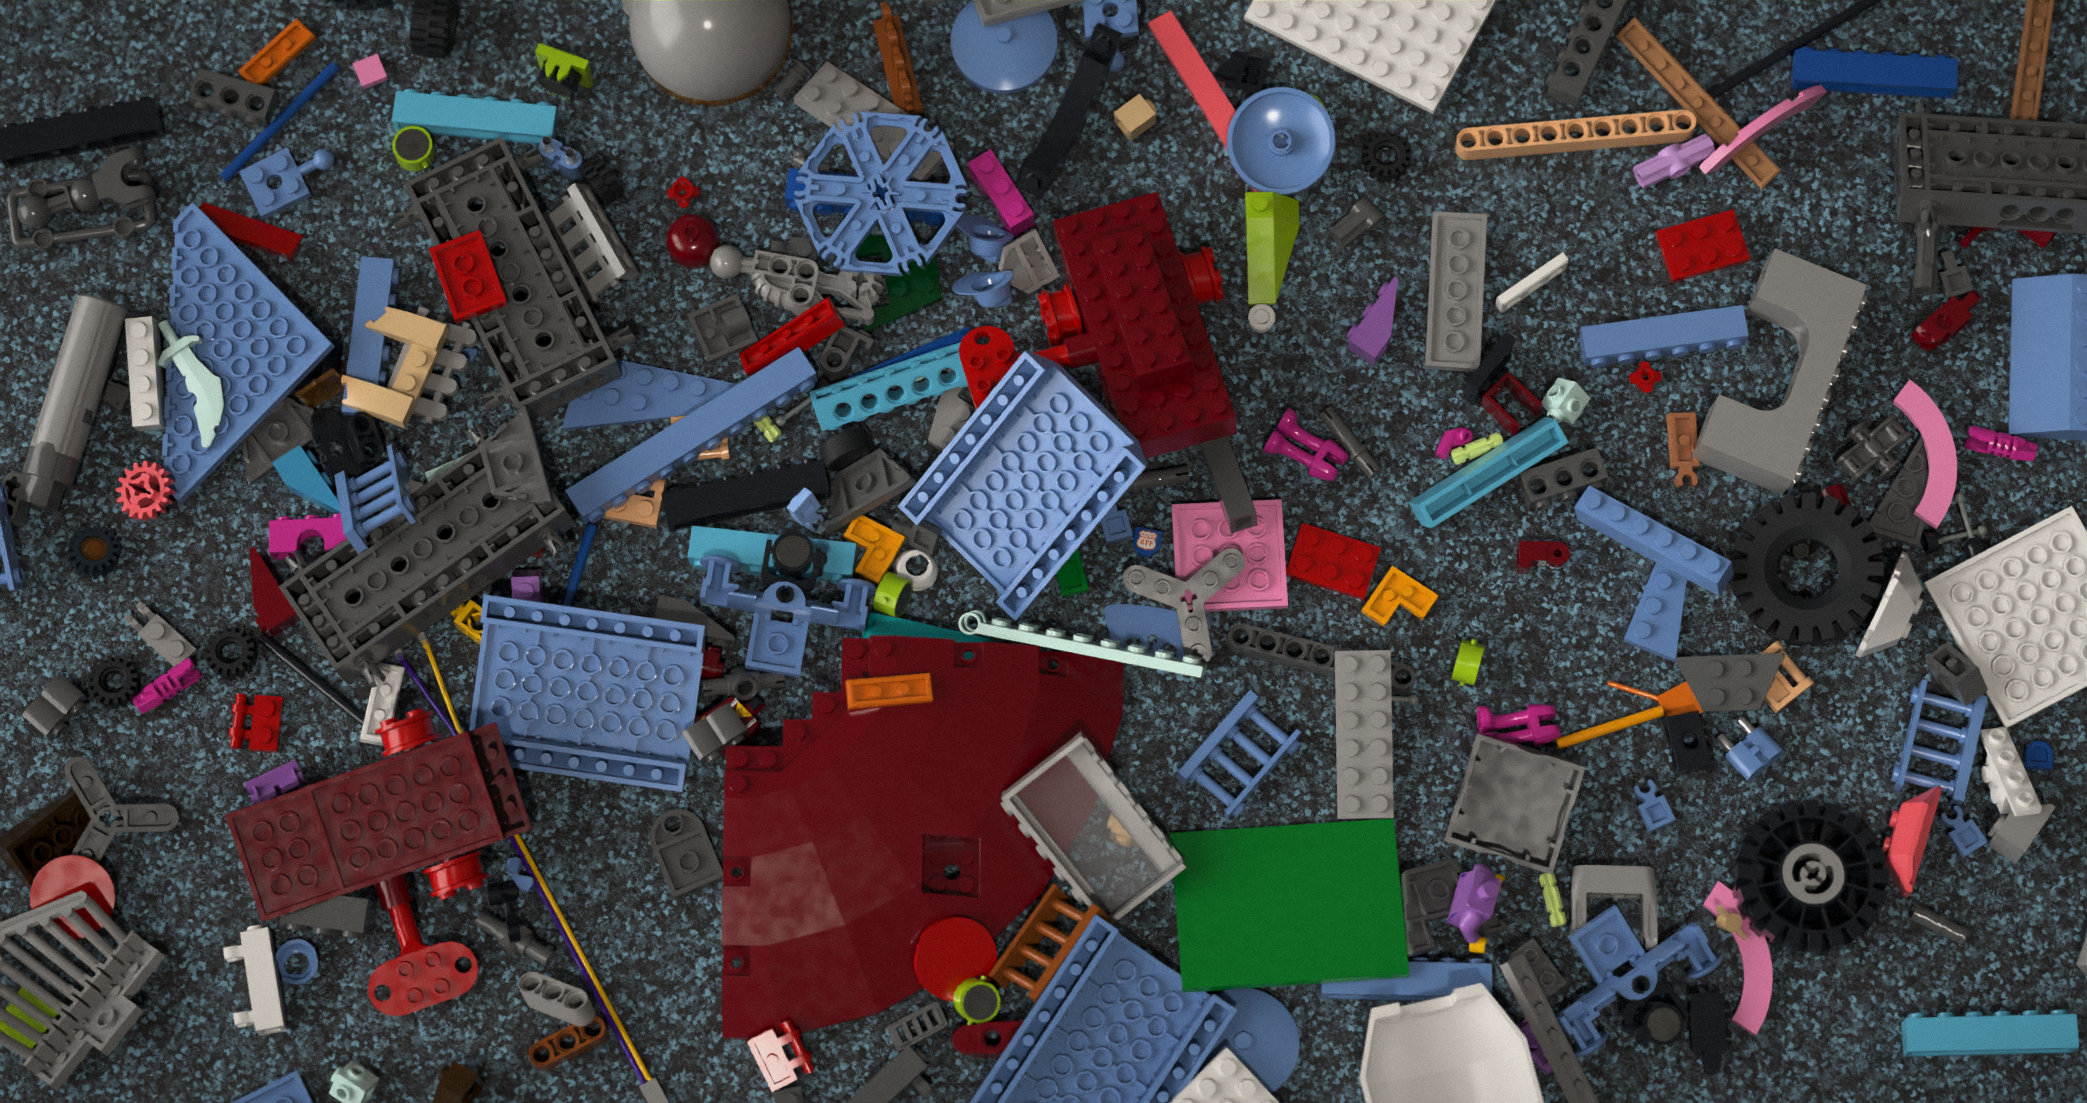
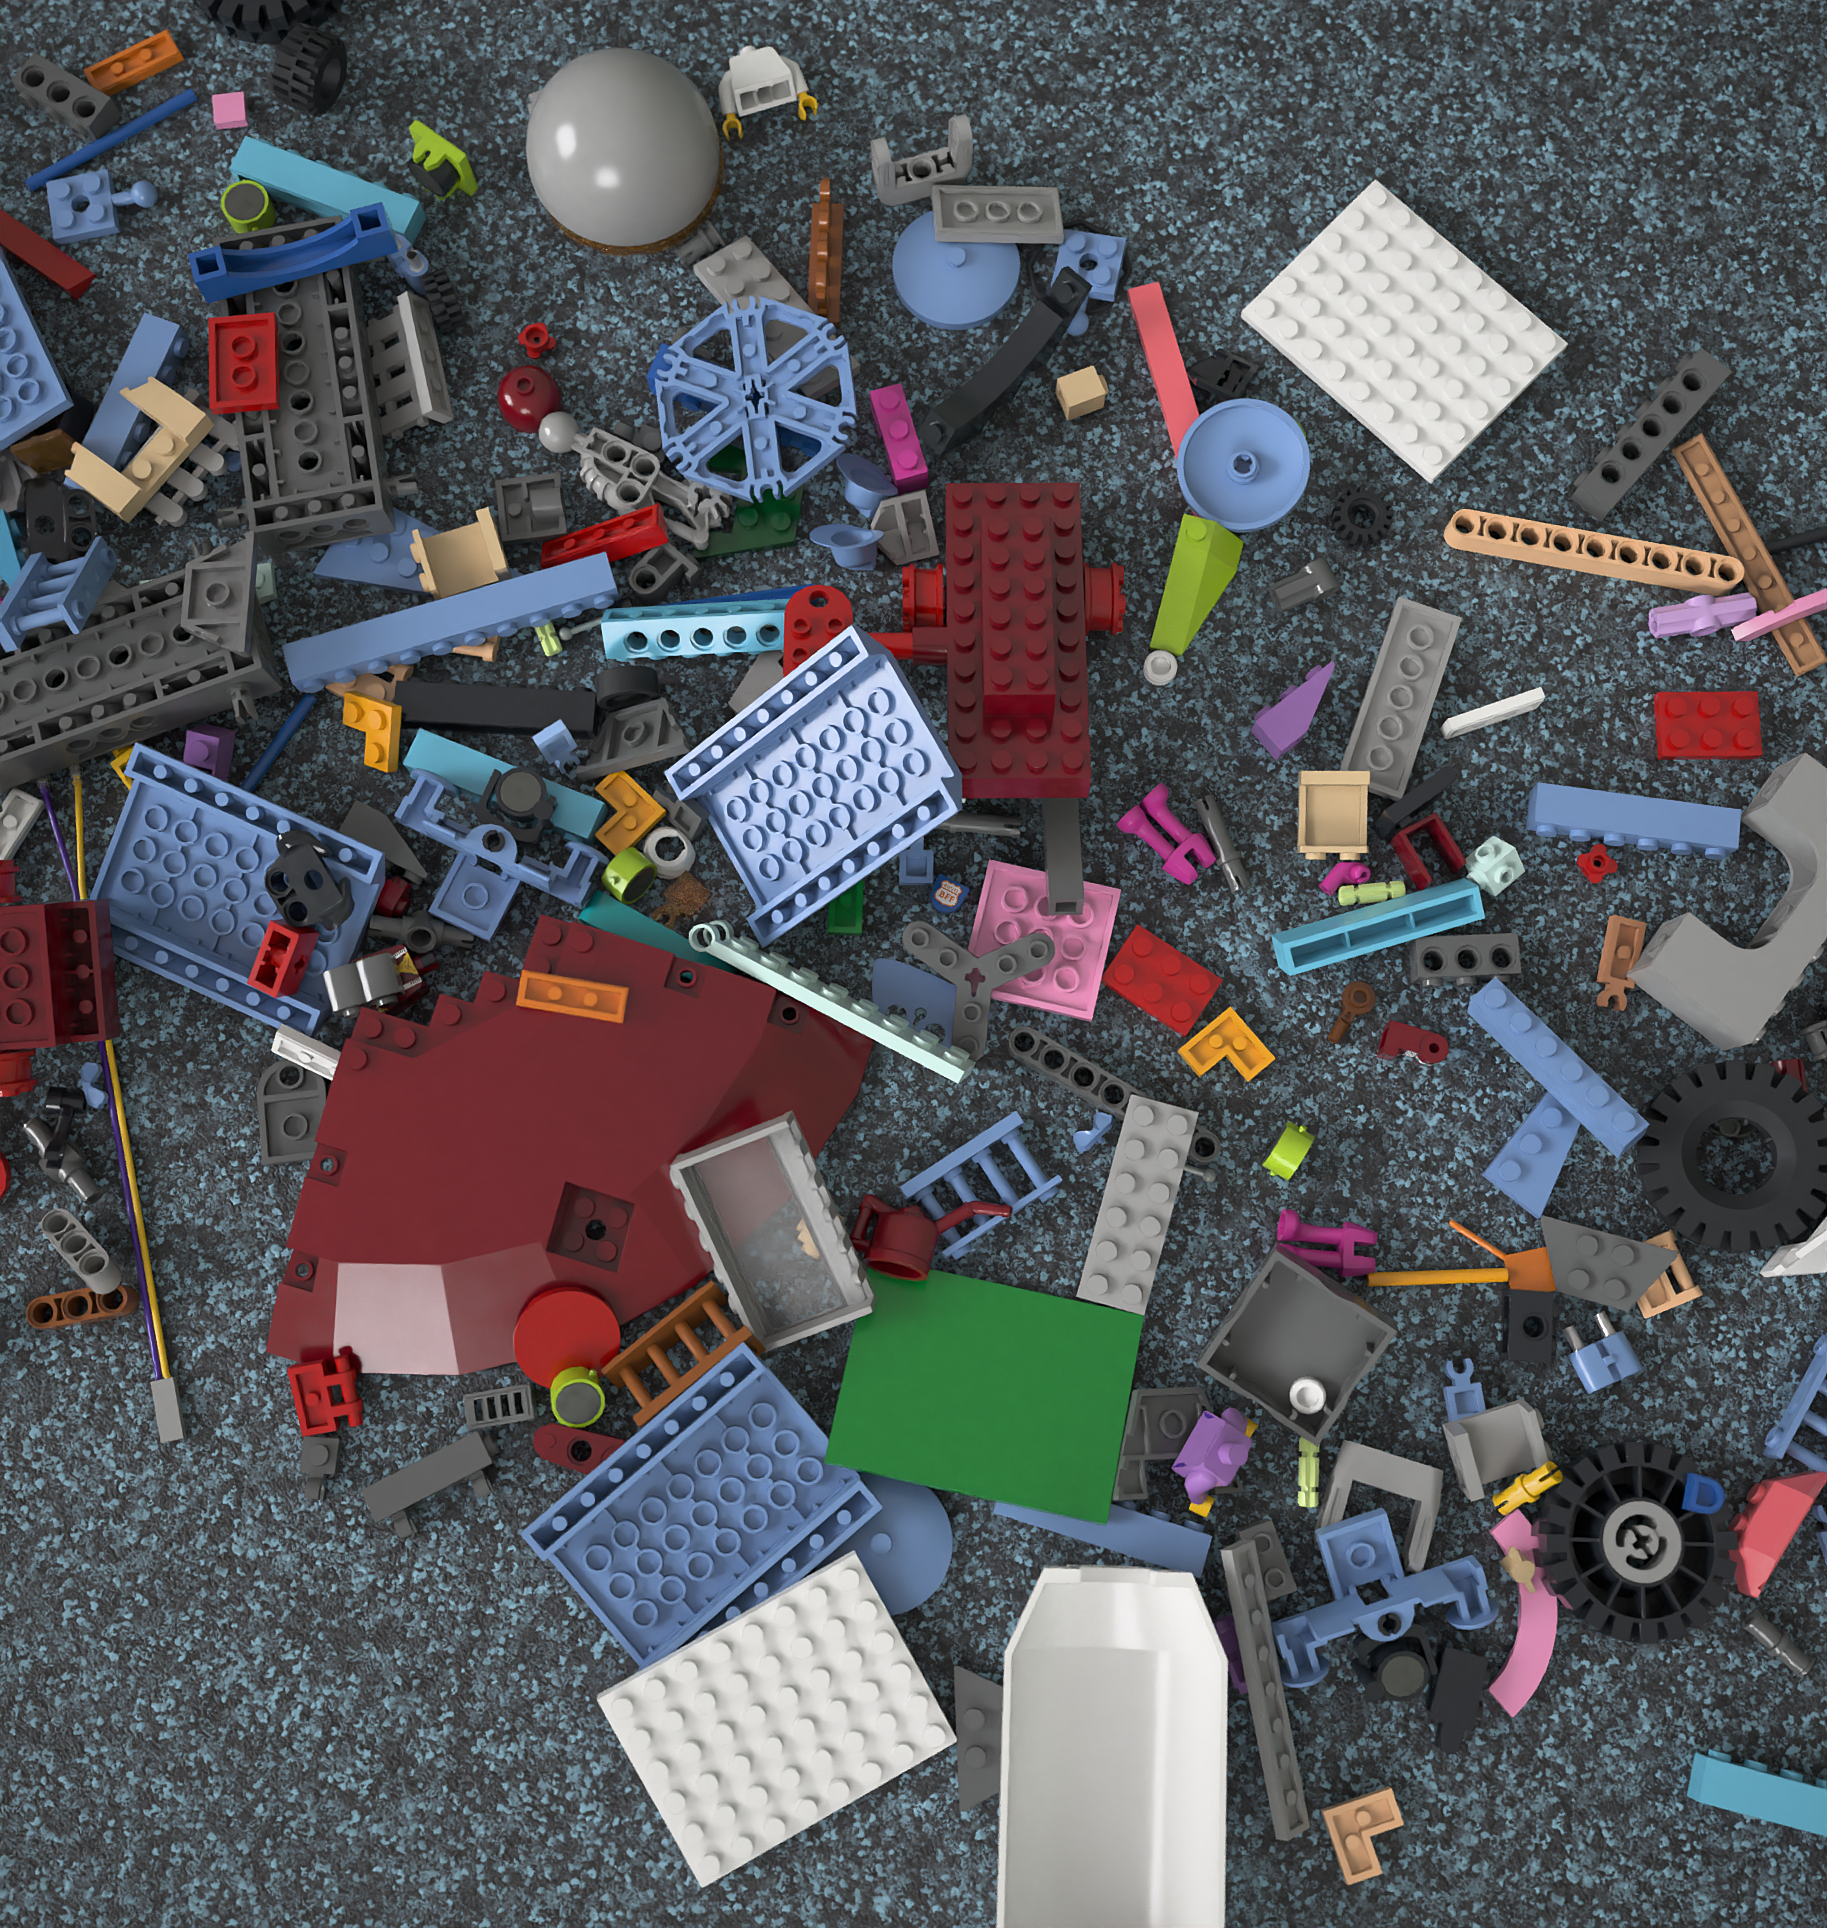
camera: 15 degrees right, 5 degrees up
(526, 153) = (356, 239): none -> blue arch
(639, 645) = (298, 856): none -> black piece
(645, 730) = (282, 958): none -> red brick
(659, 530) = (382, 726): none -> light orange plate
(682, 382) = (461, 558): none -> tan panel
(689, 801) = (306, 1051): none -> white tile
(939, 600) = (684, 897): none -> clear orange plate
(1195, 810) = (906, 1238): none -> dark red piece
(1310, 698) = (1086, 1139): none -> medium blue piece
(1429, 395) = (1332, 813): none -> tan panel
(1489, 534) = (1357, 1000): none -> reddish brown plate
(1535, 841) = (1307, 1395): none -> white tile
(1689, 838) = (1496, 1445): none -> light grey panel
(1719, 861) = (1527, 1488): none -> yellow pin
(1849, 826) = (1703, 1494): none -> blue tile

